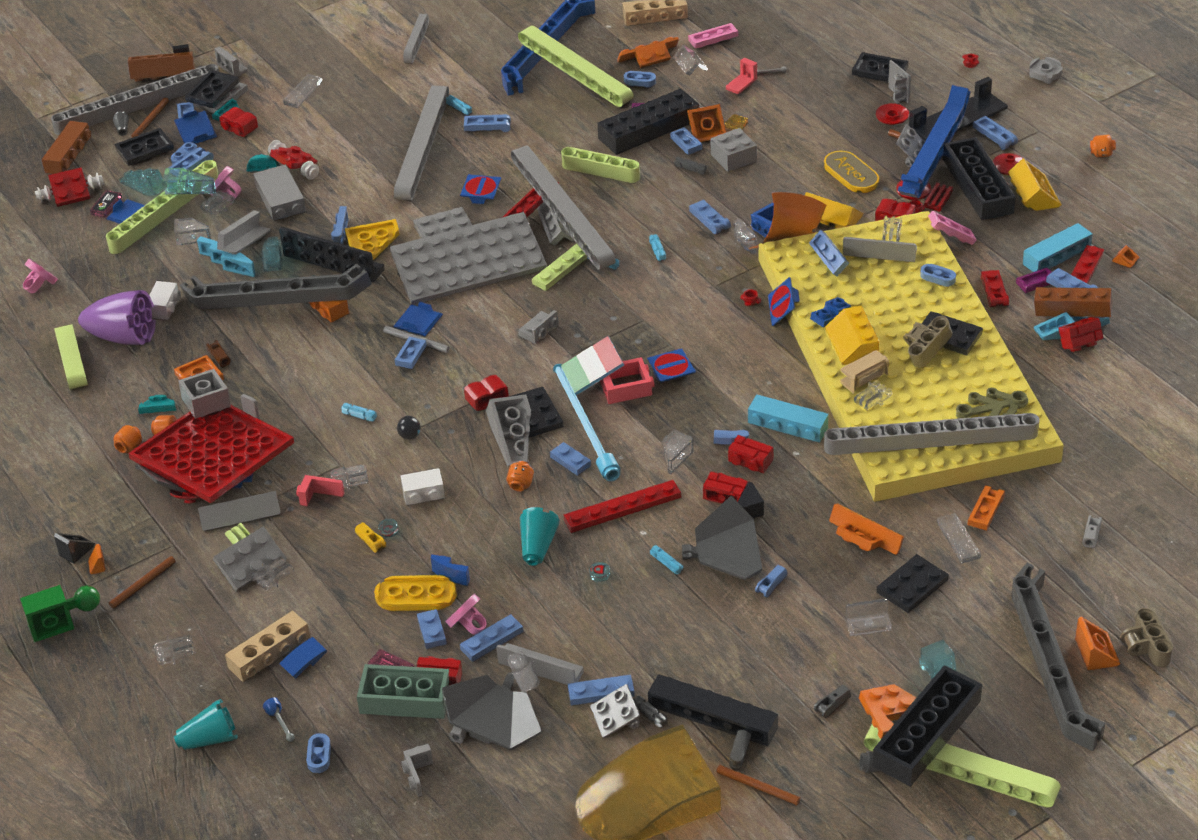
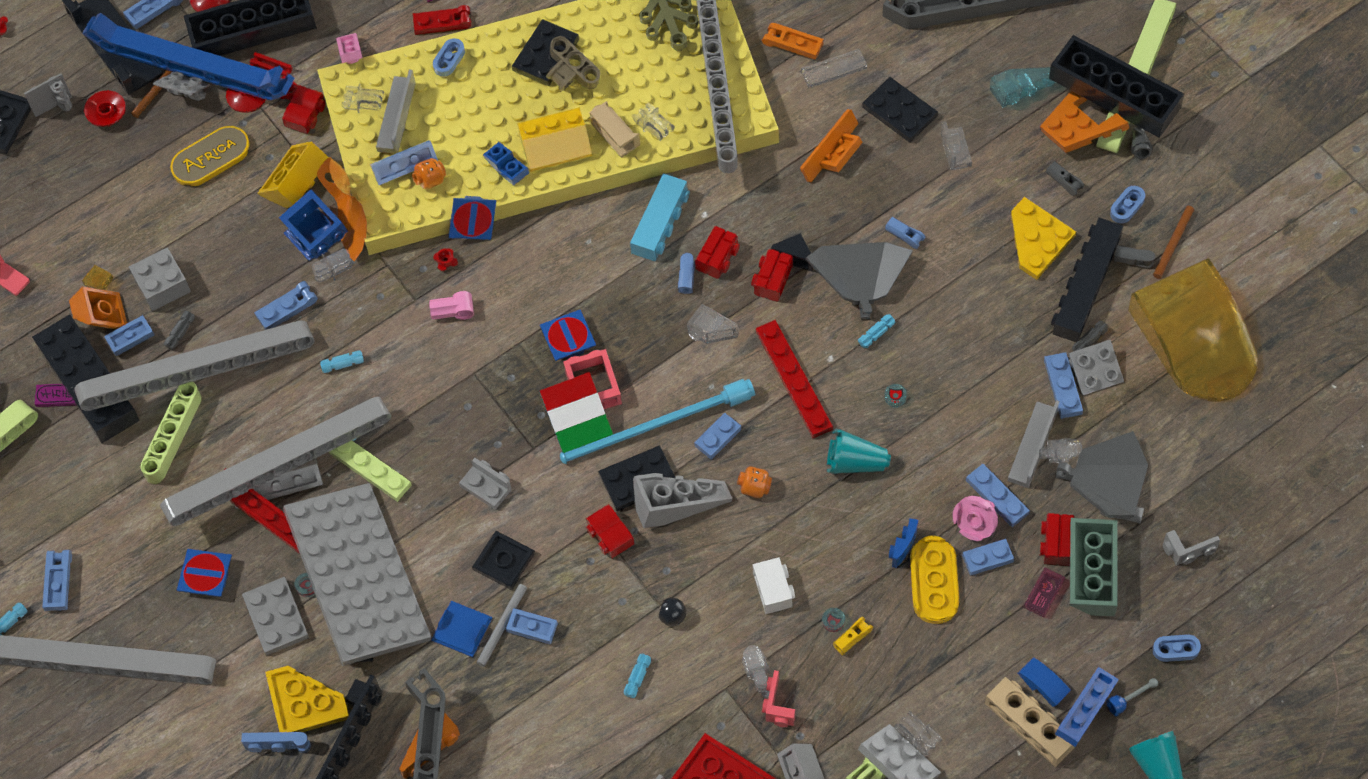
camera: 90 degrees left, 20 degrees up
(269, 677) = (1086, 706): none -> blue plate
(472, 339) = (503, 560): none -> black tile
(650, 165) = (193, 365): none -> light grey beam
(703, 303) = (458, 306): none -> bright pink piece
(765, 679) = (1038, 237): none -> yellow plate
(803, 748) = (1126, 205): none -> medium blue plate
(817, 266) = (429, 173): none -> orange head

